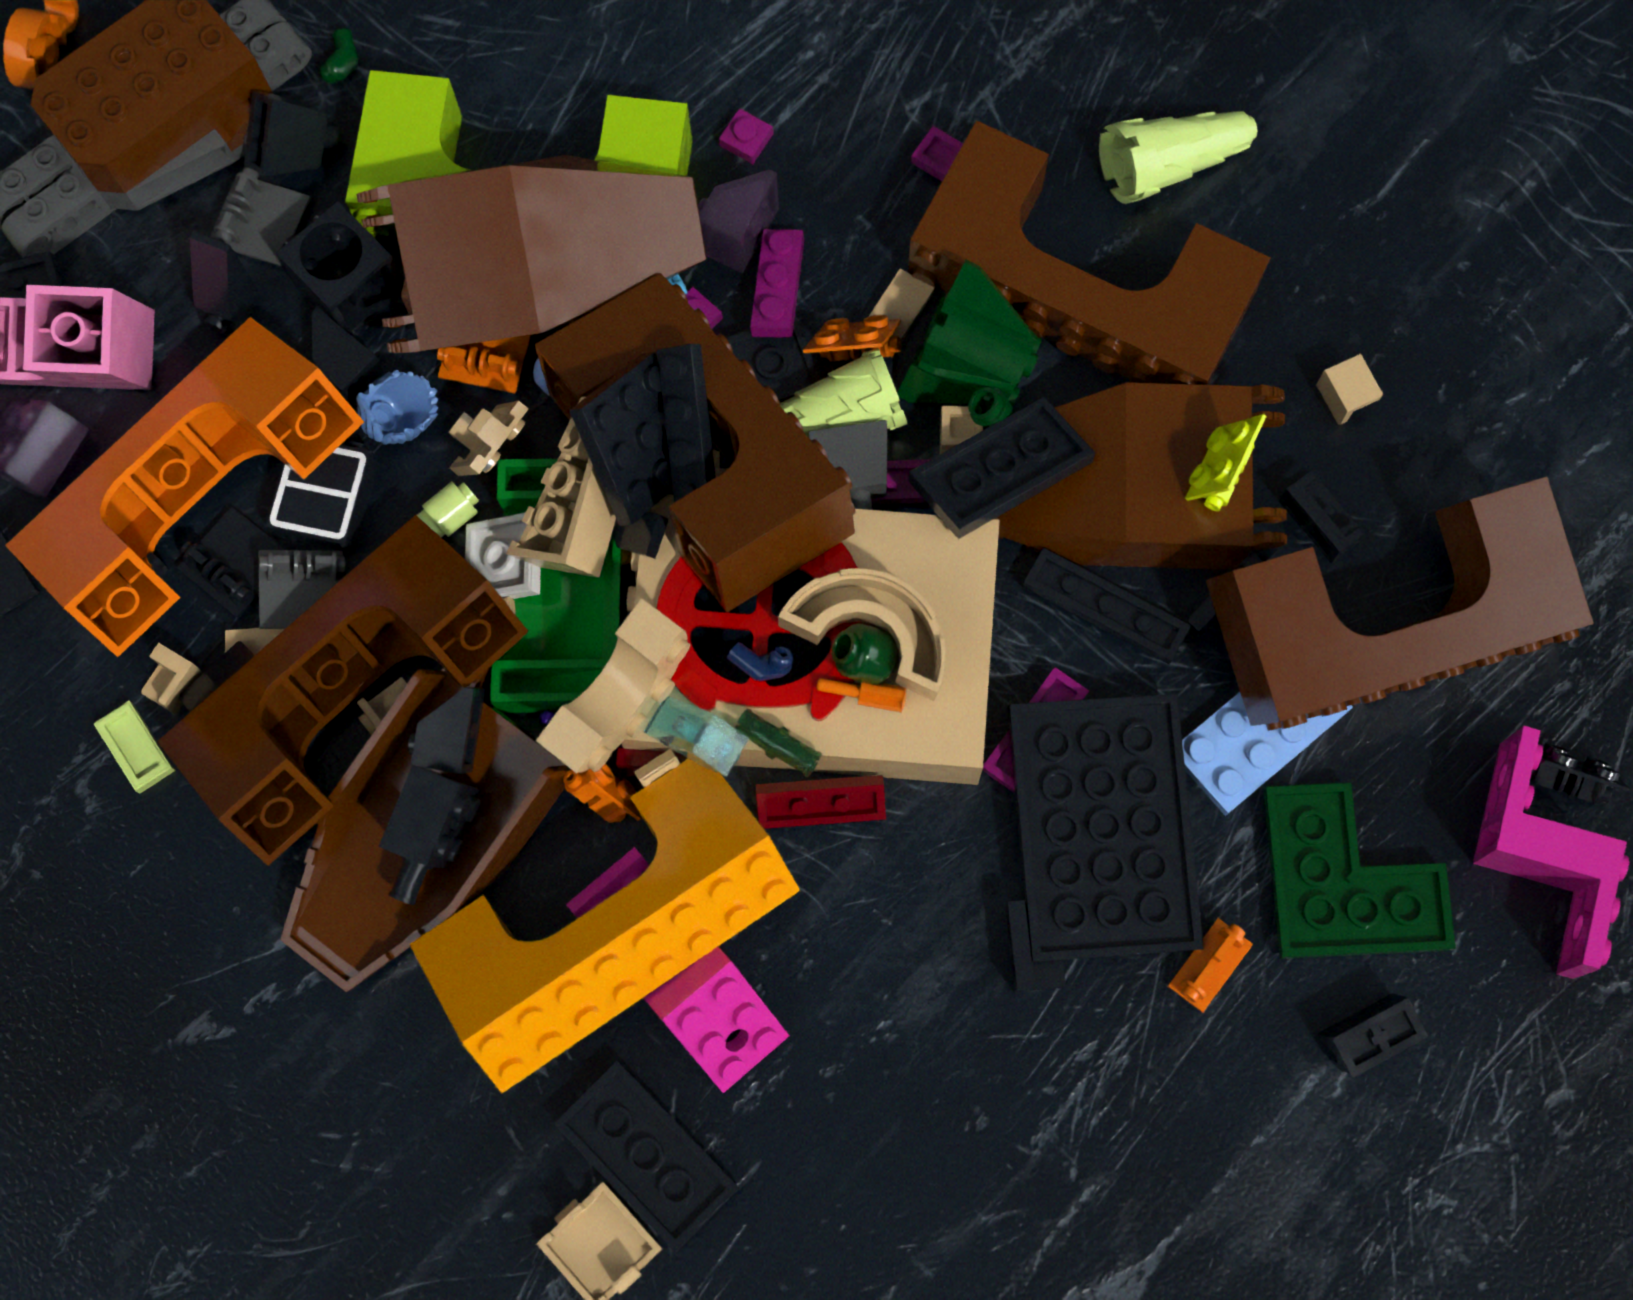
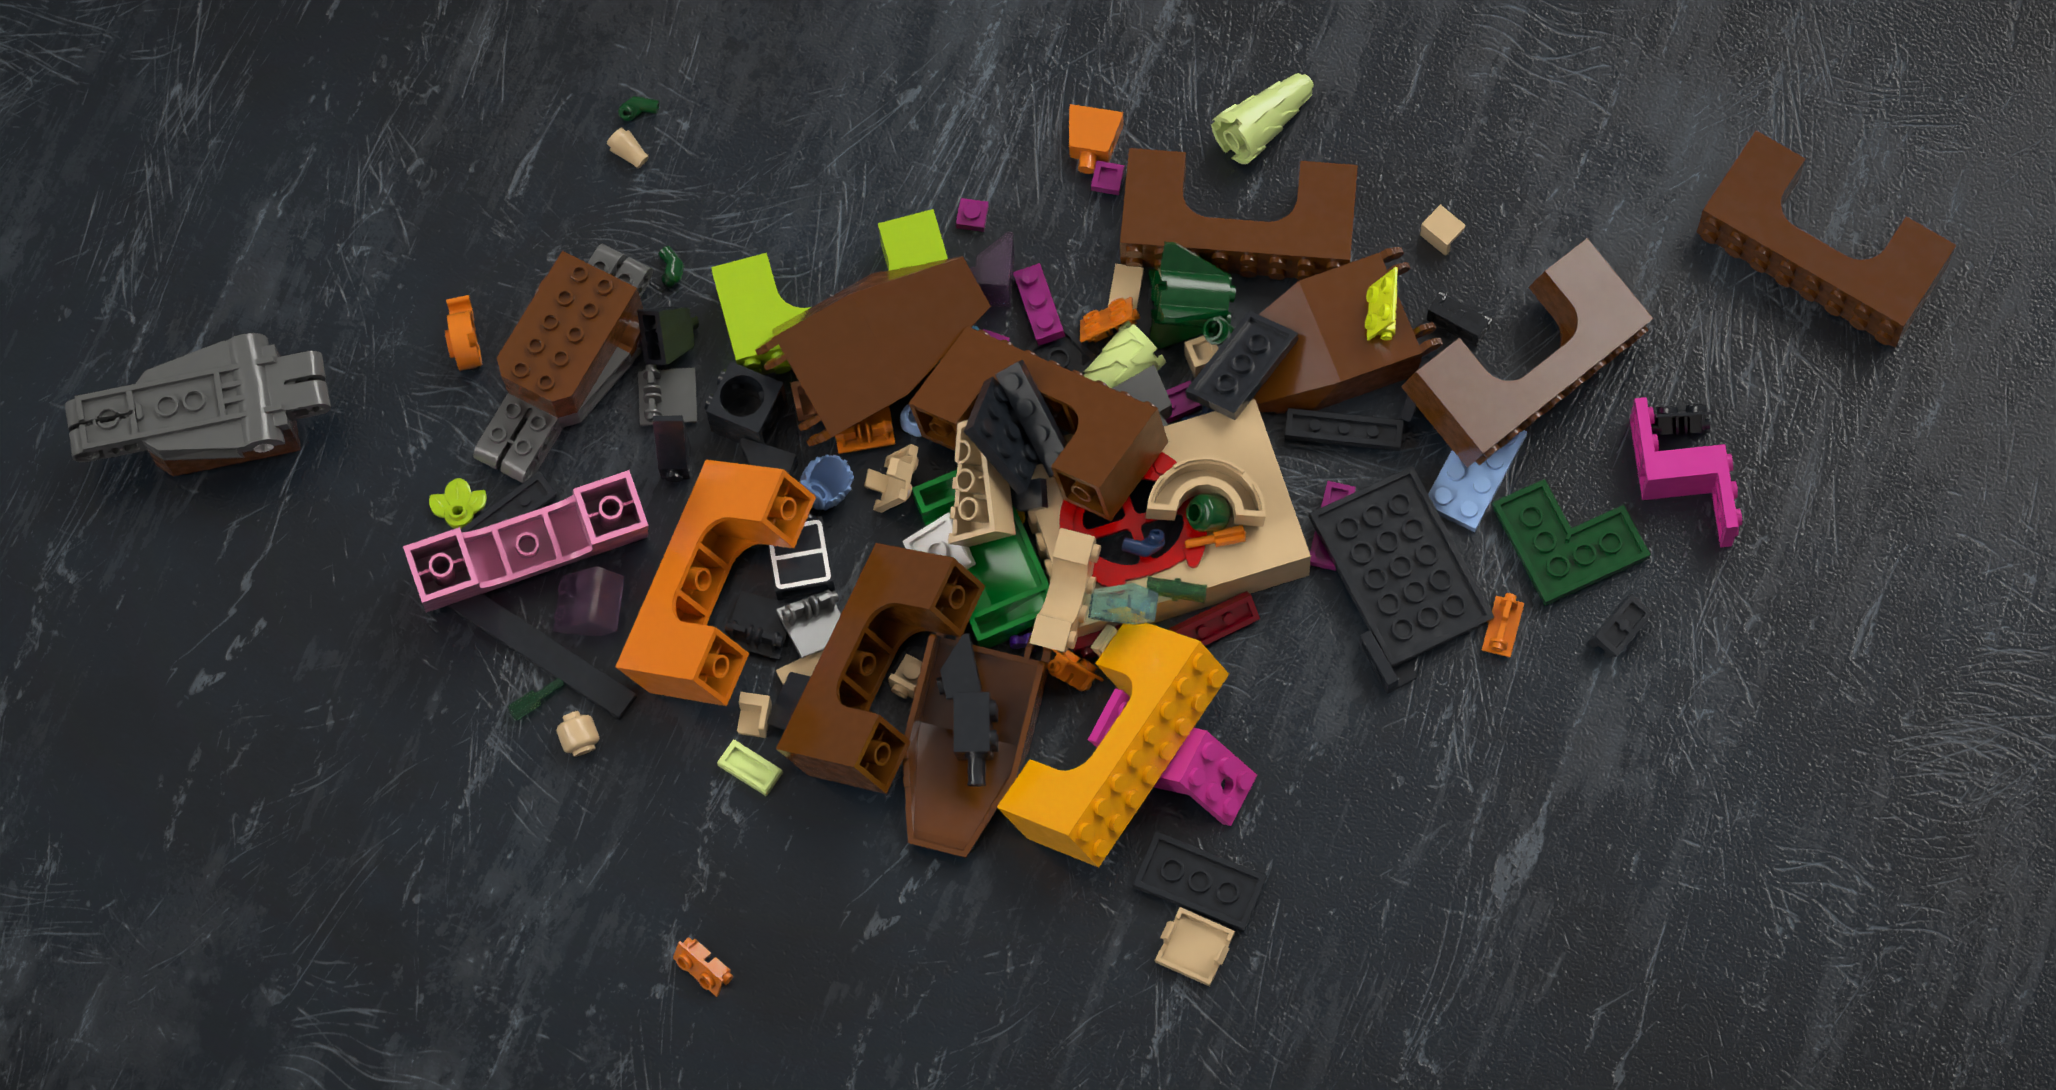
camera: 20 degrees left, 5 degrees down
(449, 509) = (888, 531): yellowish green brick -> none
(943, 92) = (1093, 135): none -> orange torso

